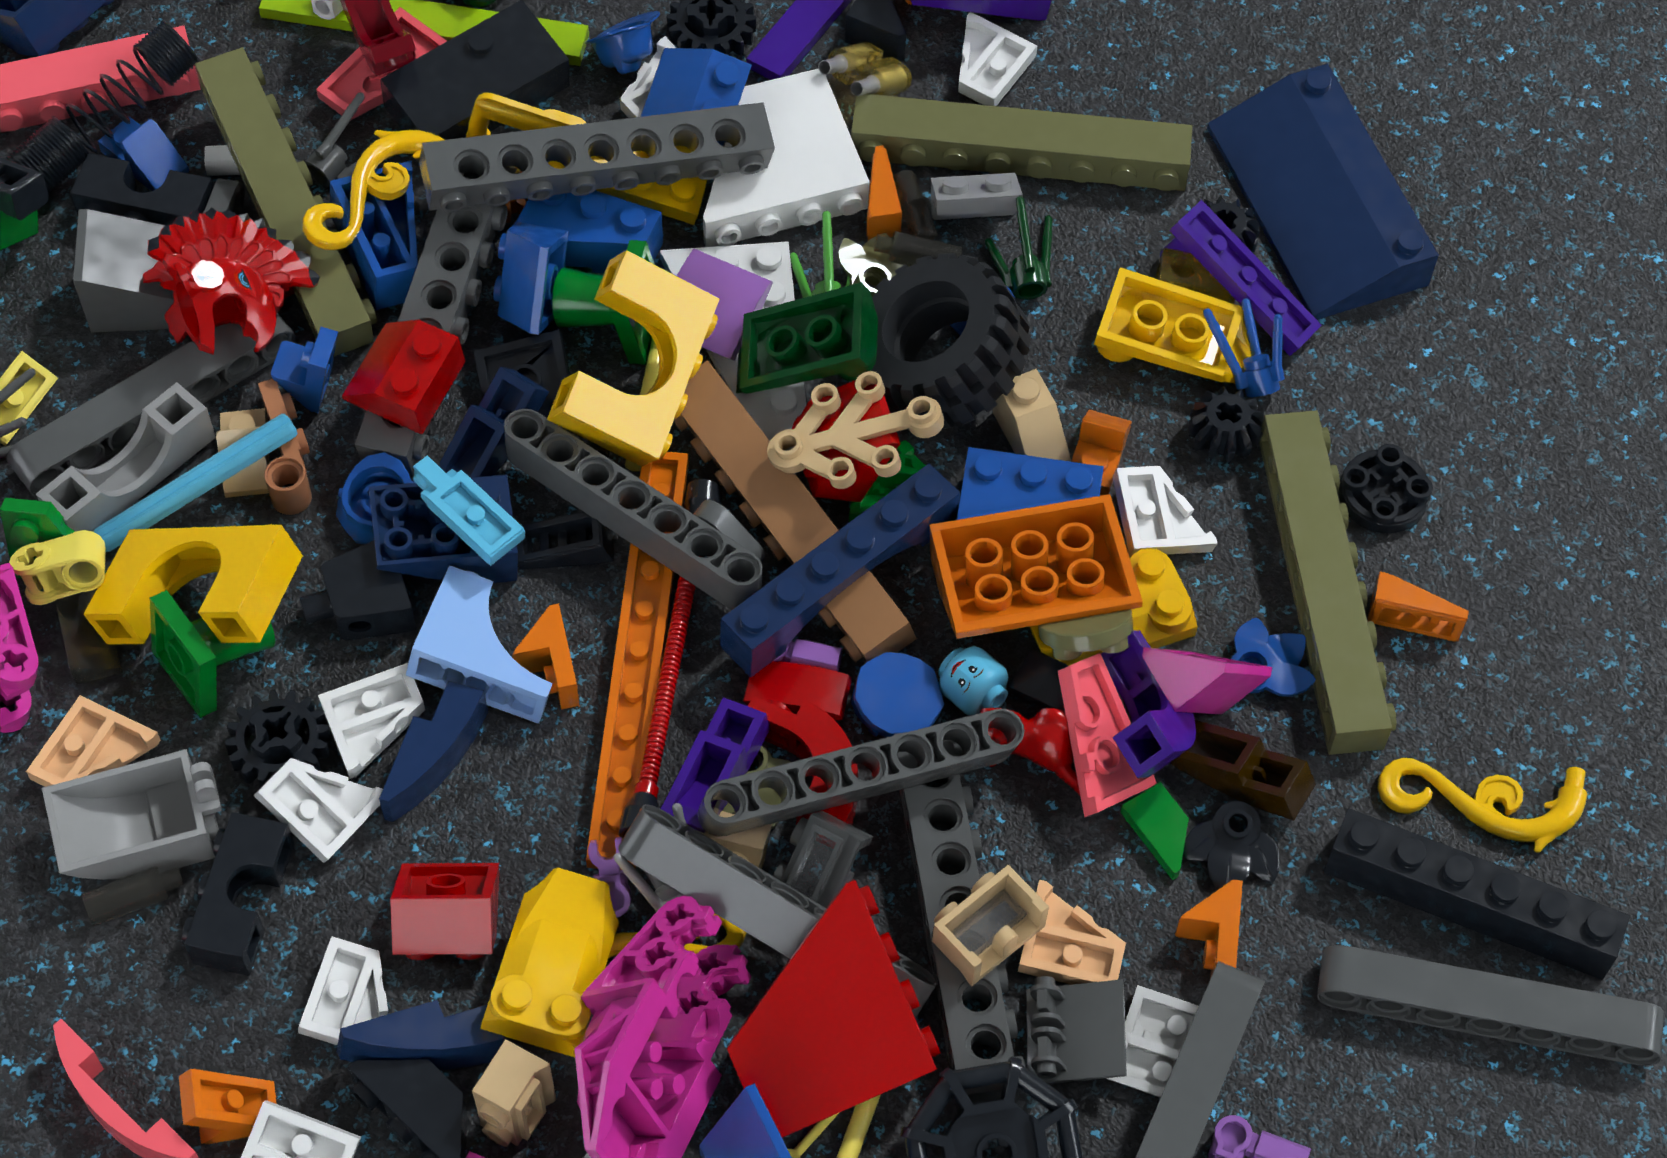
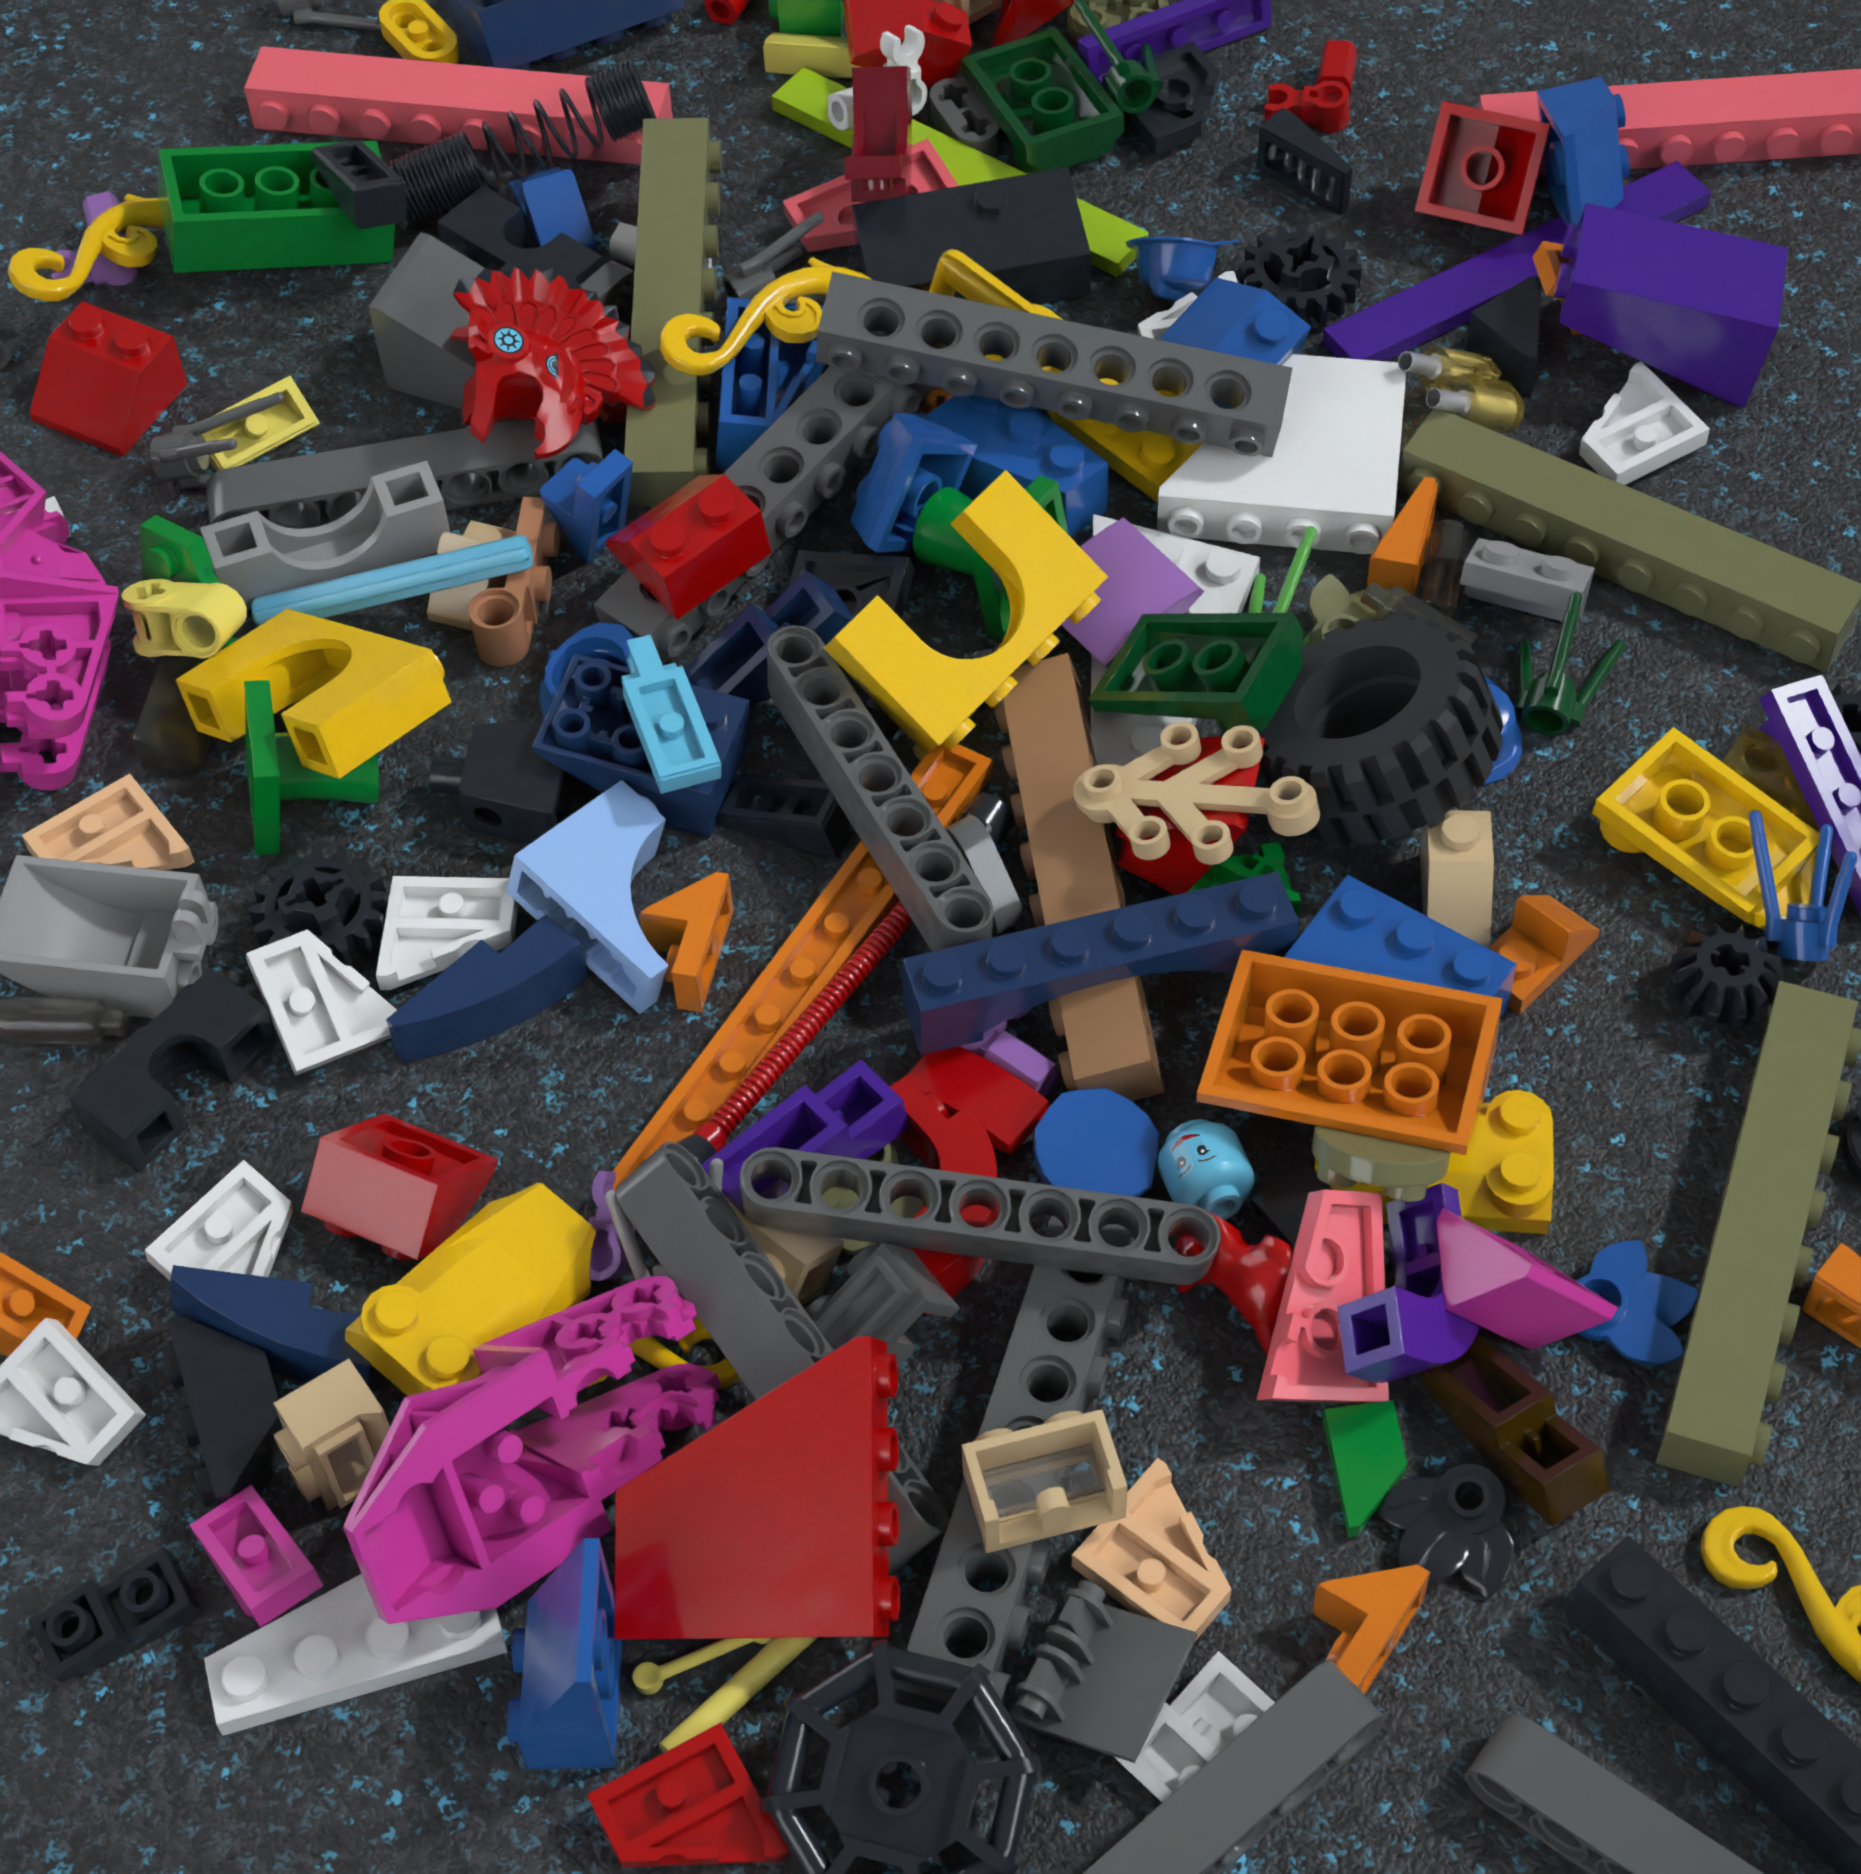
camera: 30 degrees right, 5 degrees down
(1156, 514) = (1570, 1058): white wing -> none

